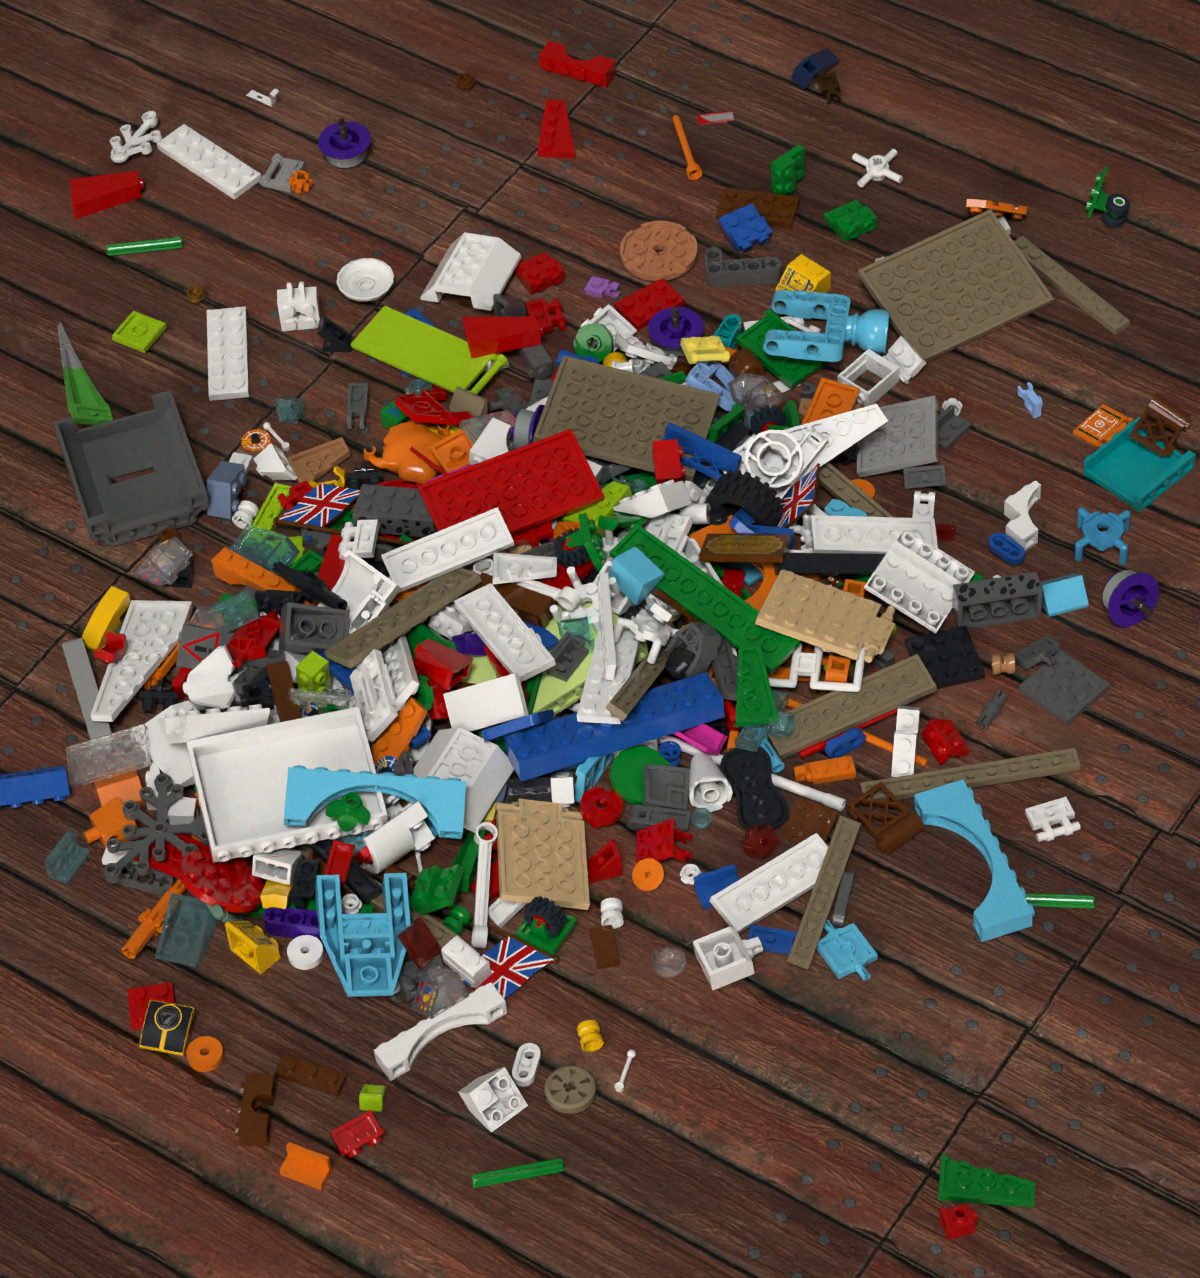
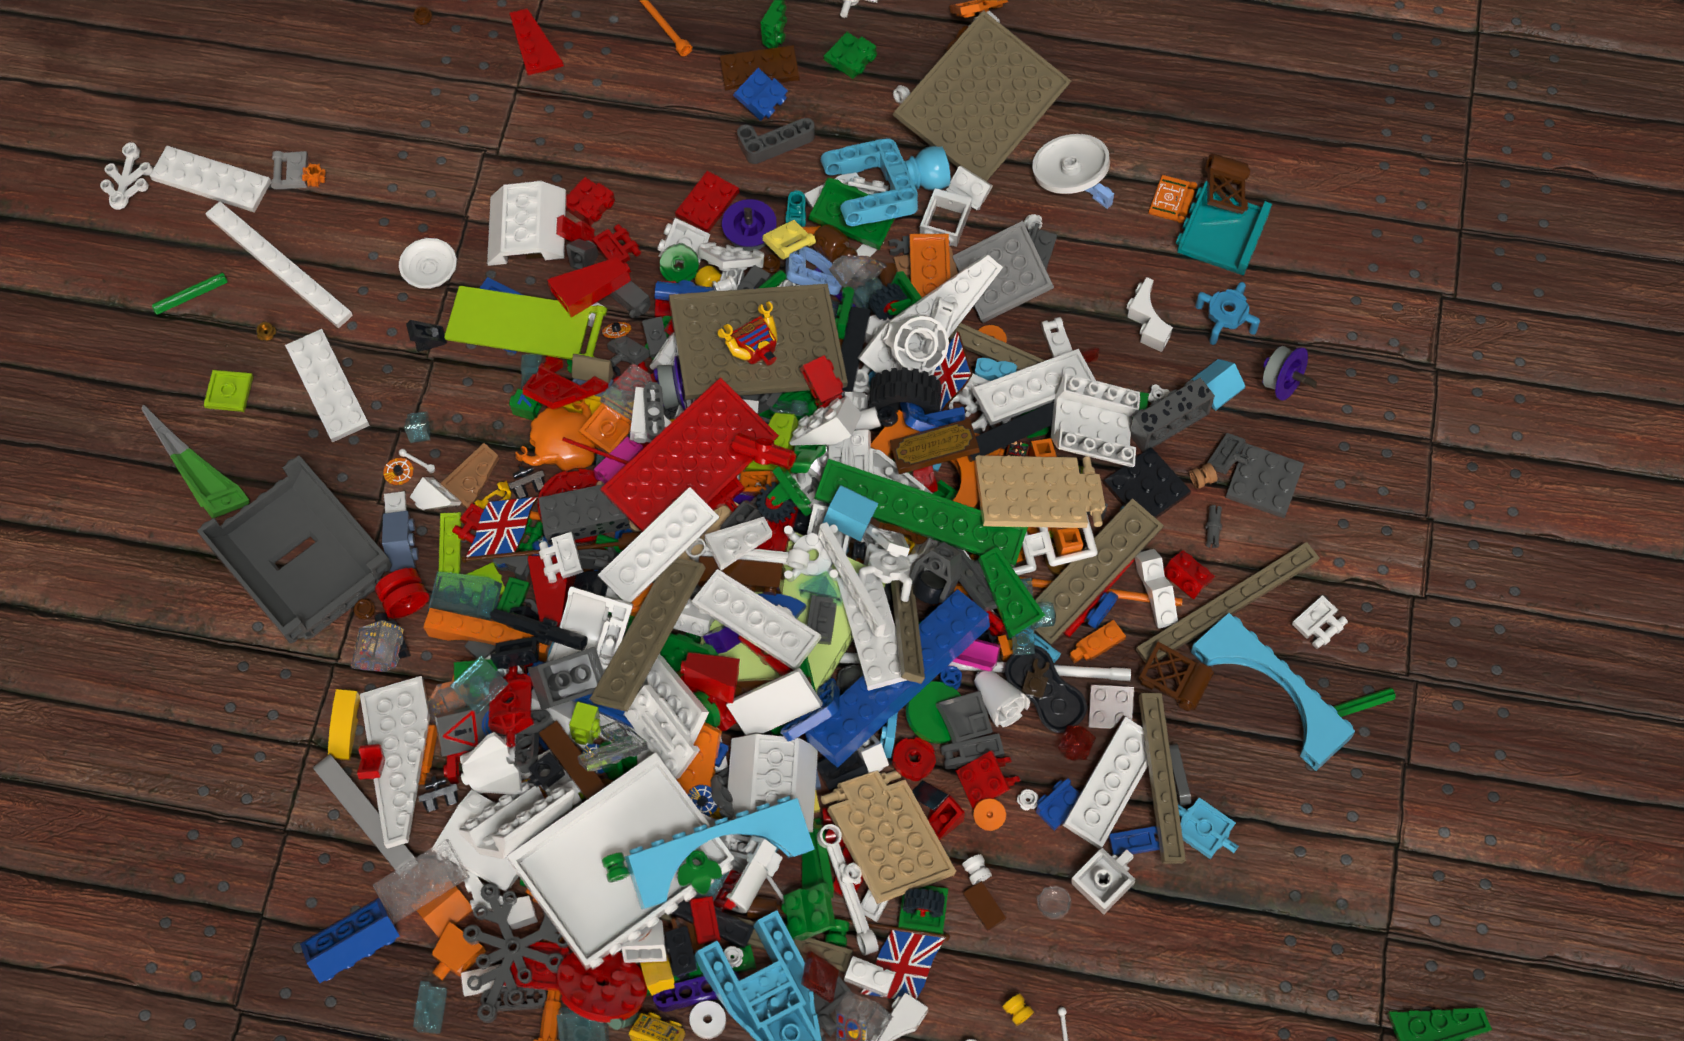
camera: 25 degrees left, 15 degrees up
(103, 192) = (121, 246): red slope -> none
(207, 530) = (402, 593): none -> red wheel
(234, 246) = (279, 264): none -> white plate
(246, 513) = (428, 559): white wheel -> none
(266, 100) = (234, 93): white piece -> none
(275, 781) = (615, 867): none -> green wheel
(298, 307) = (378, 316): white hinge -> none
(345, 143) = (339, 120): dark purple piece -> none
(357, 403) = (480, 399): dark grey hinge -> none
(492, 865) = (855, 873): none -> white plate
(498, 433) = (658, 403): none -> dark grey beam
(506, 286) = (572, 231): none -> red slope
(510, 382) = (616, 330): none -> piece
(580, 498) = (764, 451): none -> red piece
(597, 838) = (928, 795): none -> black sticker
(600, 287) = (653, 198): medium lavender plate -> none
(619, 411) = (753, 340): none -> torso
(642, 261) = (682, 159): nougat plate -> none
(701, 818) = (1010, 735): clear light blue plate -> none
(703, 451) = (844, 354): blue fence -> none
(745, 777) = (1035, 682): none -> dark brown plate
(805, 275) = (839, 131): yellow slope -> none
(924, 476) = (1043, 304): dark grey panel -> none
(1007, 550) = (1149, 355): blue plate -> none
(1014, 366) = (1071, 163): none -> white dish
(1072, 287) = (1081, 63): dark tan plate -> none

